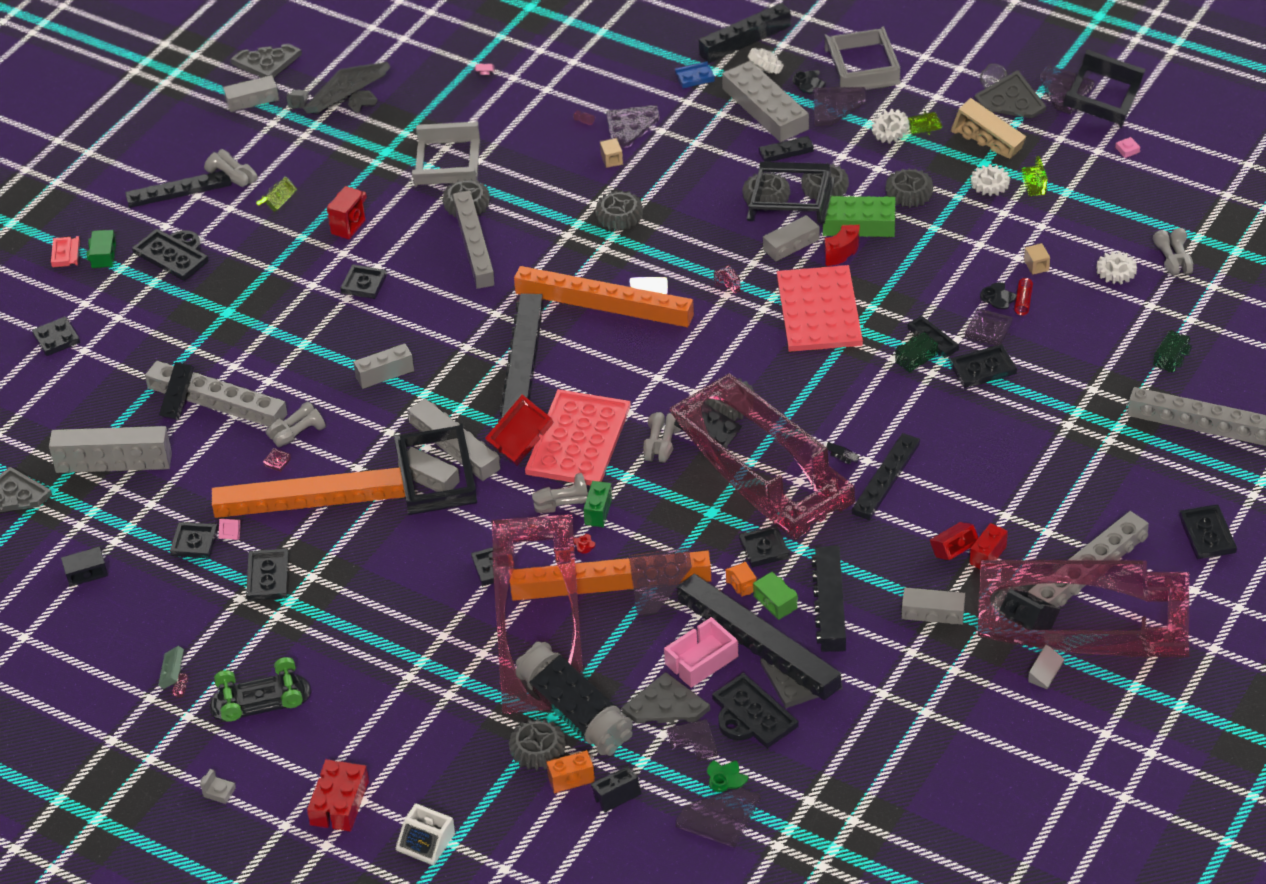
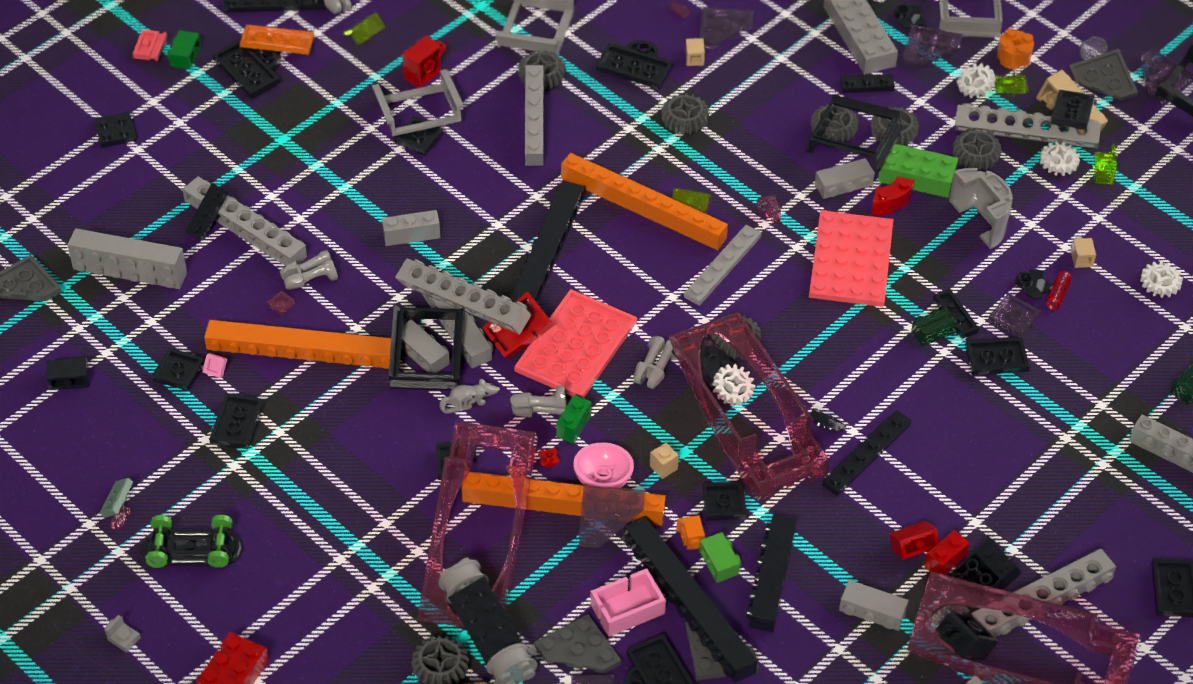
camera: 10 degrees right, 5 degrees up
(193, 221) = (277, 39): none -> orange tile
(378, 231) = (446, 86): none -> light grey piece
(454, 411) = (463, 295): none -> light grey brick
(484, 506) = (464, 395): none -> light grey animal
(556, 175) = (635, 64): none -> black plate
(640, 536) = (603, 465): none -> bright pink hat
(696, 522) = (664, 460): none -> tan brick
(697, 339) = (722, 265): none -> light grey plate
(742, 441) = (730, 386): none -> white gear
(919, 90) = (1015, 49): none -> orange brick
(933, 224) = (988, 195): none -> light grey cylinder
(960, 161) = (1035, 133): none -> light grey brick
(991, 131) = (1072, 109): none -> black plate
(1031, 545) = (987, 567): none -> black slope

